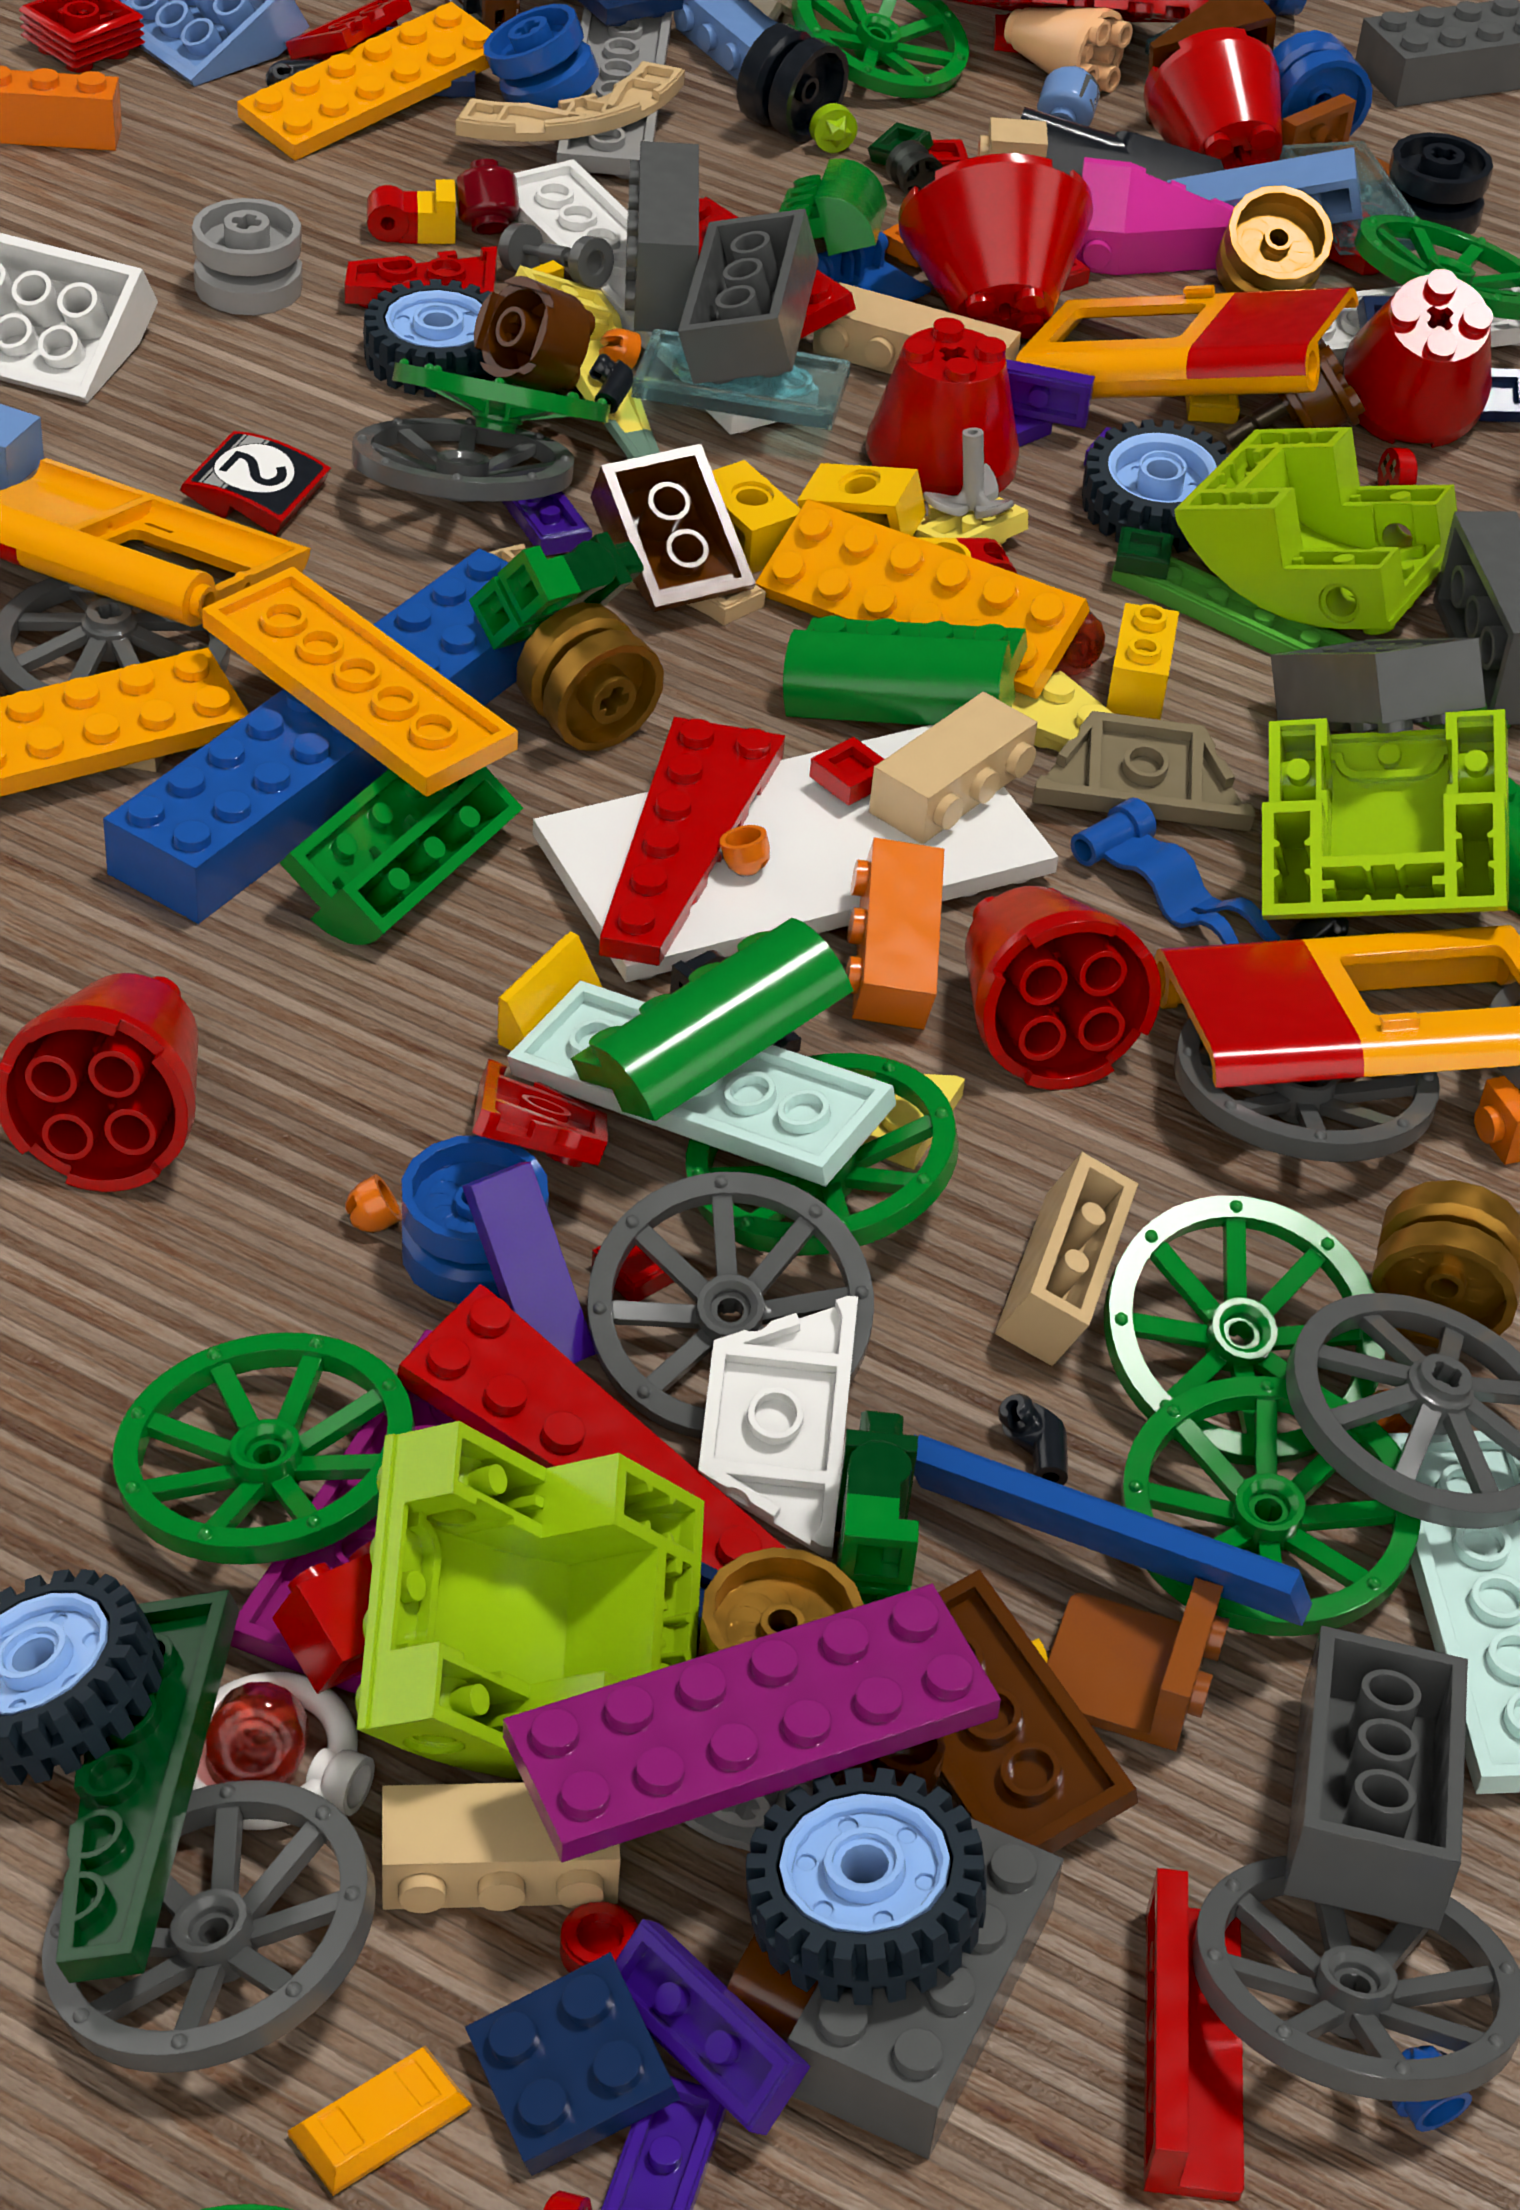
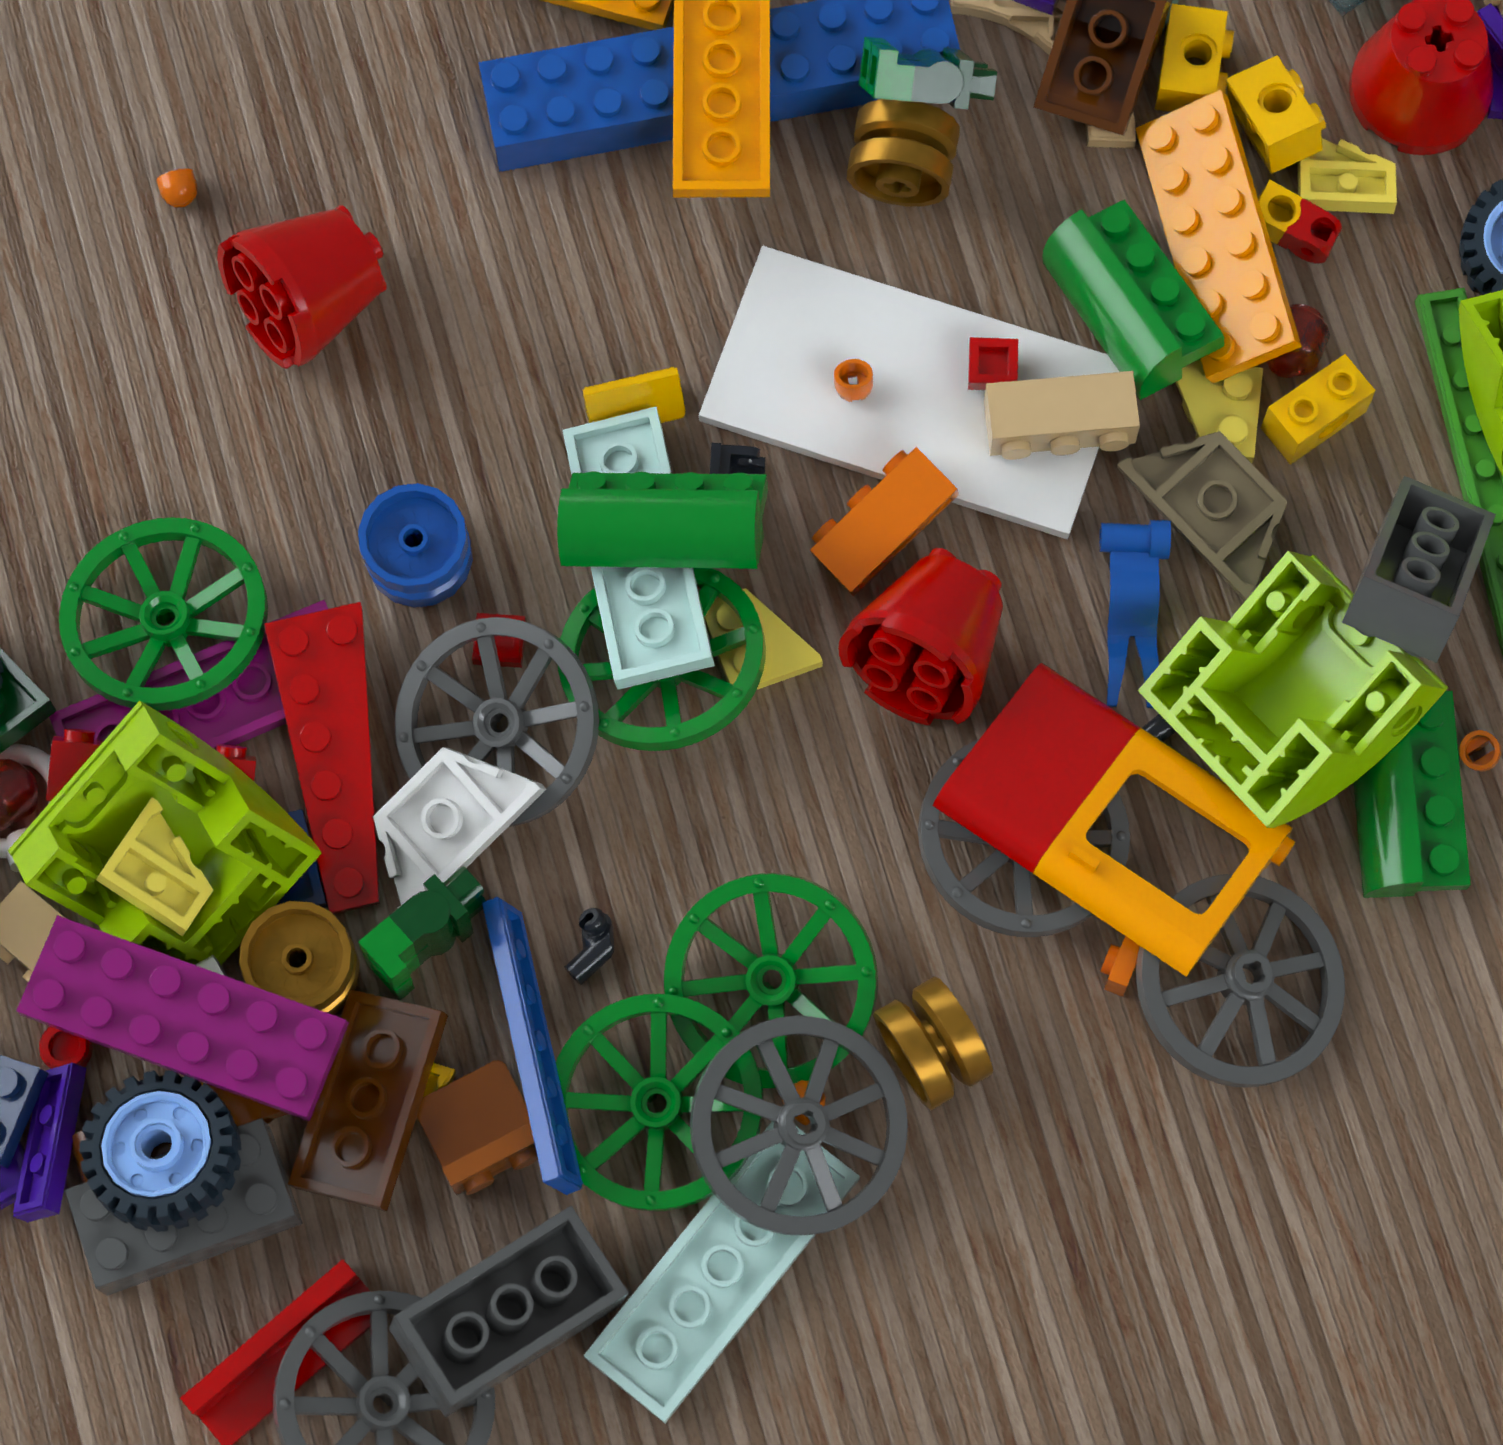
camera: 50 degrees right, 30 degrees up
(372, 1206) = (386, 471): orange hinge -> none
(394, 849) = (630, 215): green brick -> none
(528, 1257) = (394, 611): dark purple tile -> none
(538, 1118) = (511, 499): red wing -> none
(556, 1628) = (156, 872): none -> light yellow wing
(695, 797) = (872, 312): red wing -> none
(979, 484) = (1372, 156): light grey plant -> none
(1067, 1259) = (722, 846): tan brick -> none
(1144, 552) = (1440, 302): dark green tile -> none

